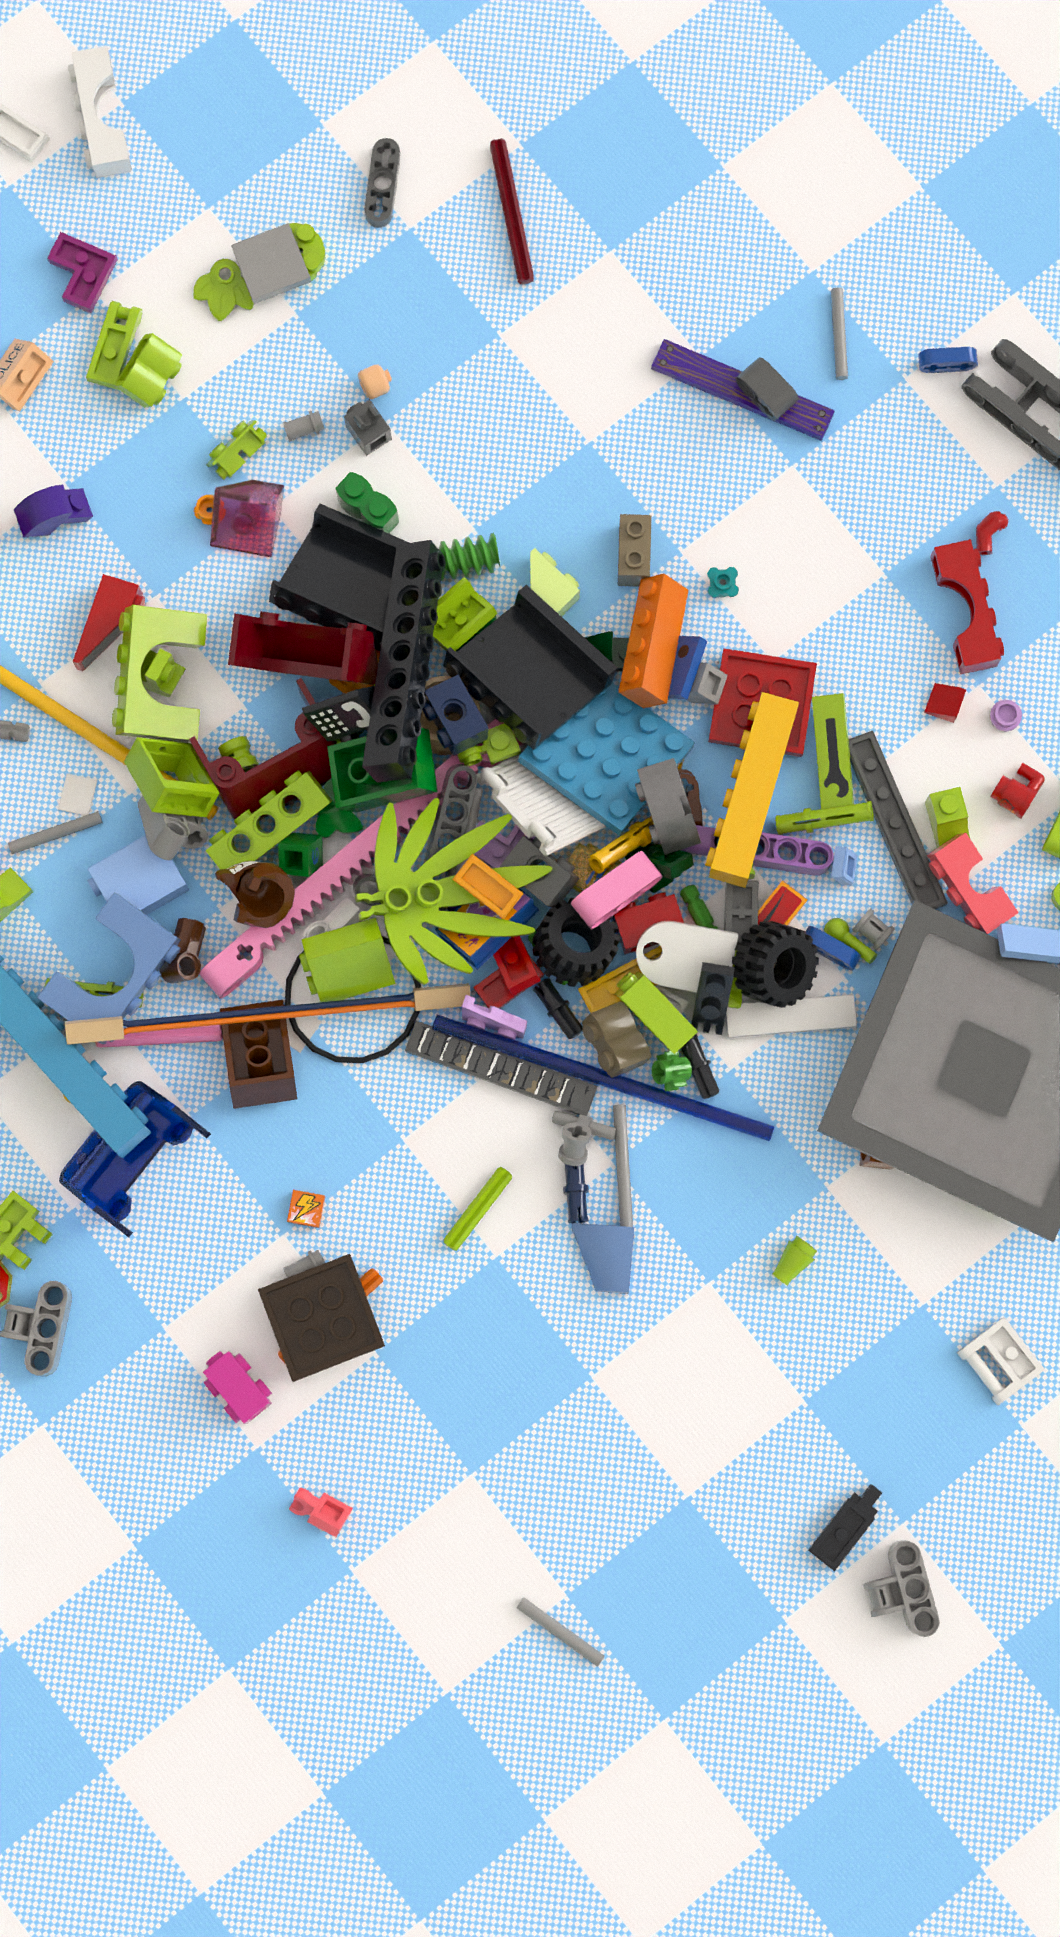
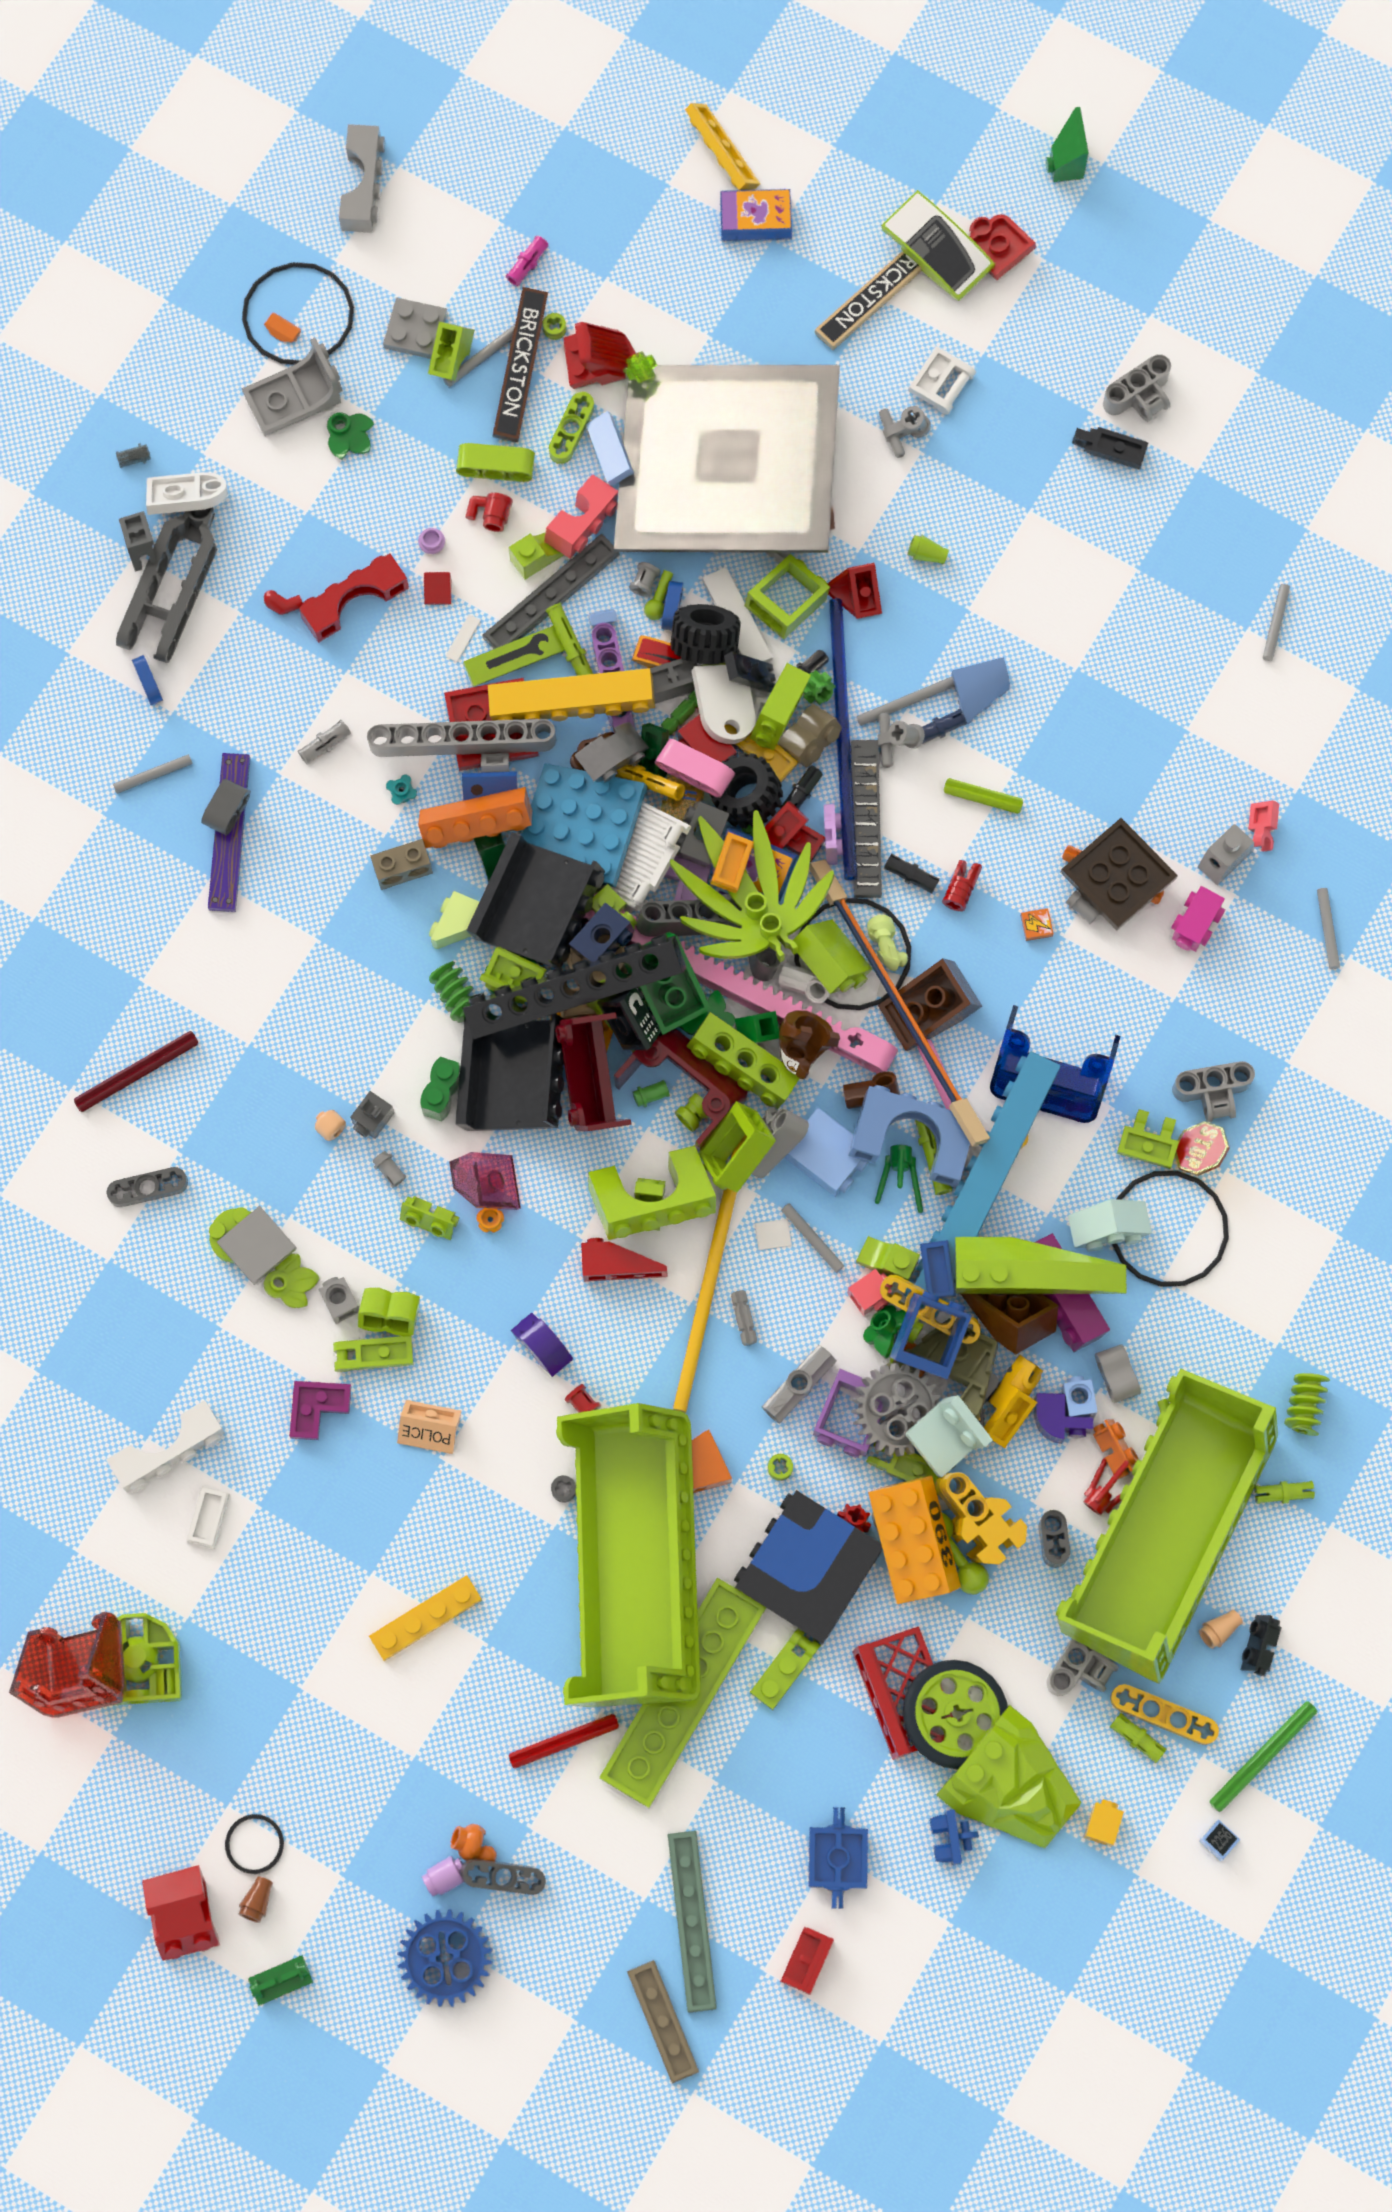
camera: 110 degrees left, 5 degrees down
(100, 955) = (900, 1160): none -> green plant
(174, 318) = (343, 1310): none -> light grey brick
(174, 1535) = (1328, 928): none -> light grey bar
(278, 721) = (650, 1093): none -> bright green pin
(300, 1454) = (1228, 851): none -> light grey torso
(362, 1032) = (881, 931): none -> yellowish green arm
(376, 1137) = (960, 887): none -> red hinge
(416, 1092) = (911, 873): none -> black pin
(756, 644) = (450, 730): none -> light grey beam
(770, 1161) = (858, 590): none -> red slope
(776, 1049) = (771, 613): none -> lime window
(808, 520) = (324, 742): none -> light grey pin
(879, 711) = (463, 637): none -> white sticker
(956, 1293) = (905, 426): none -> light grey piece

